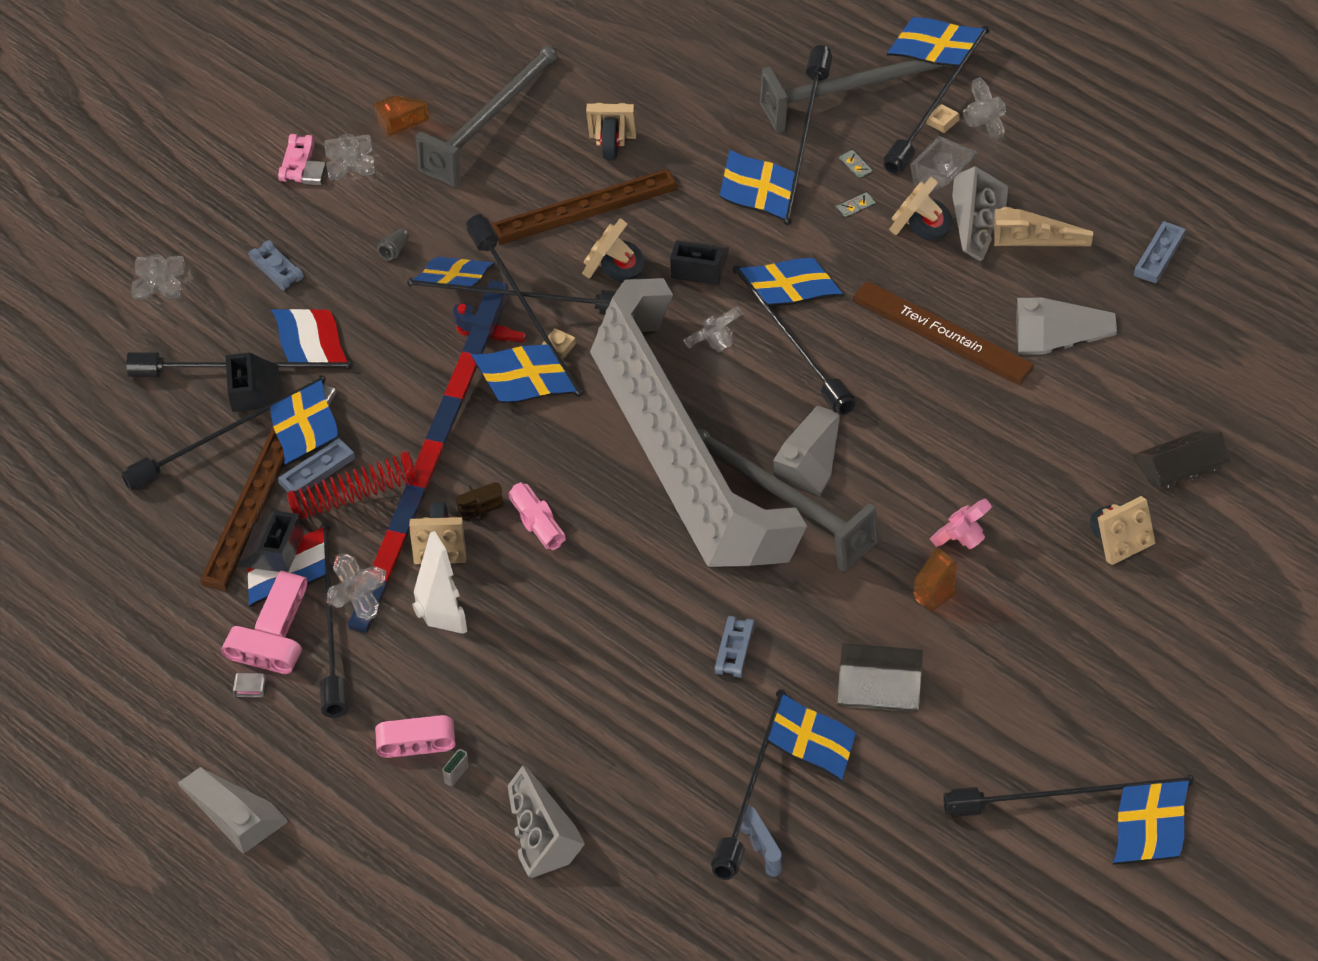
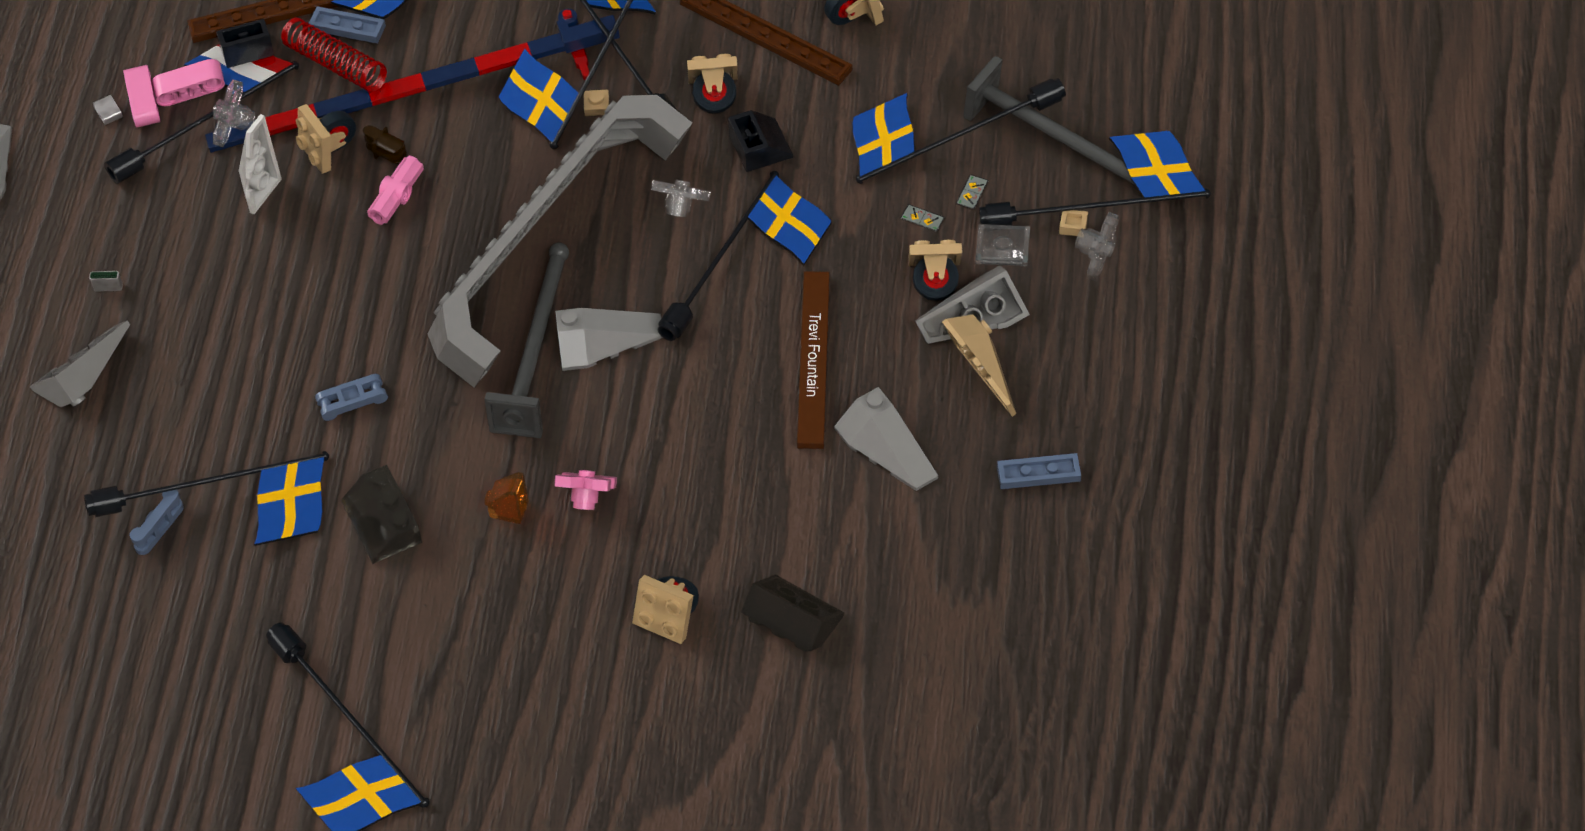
camera: 55 degrees right, 5 degrees up
(415, 736) = (119, 238): bright pink beam -> none

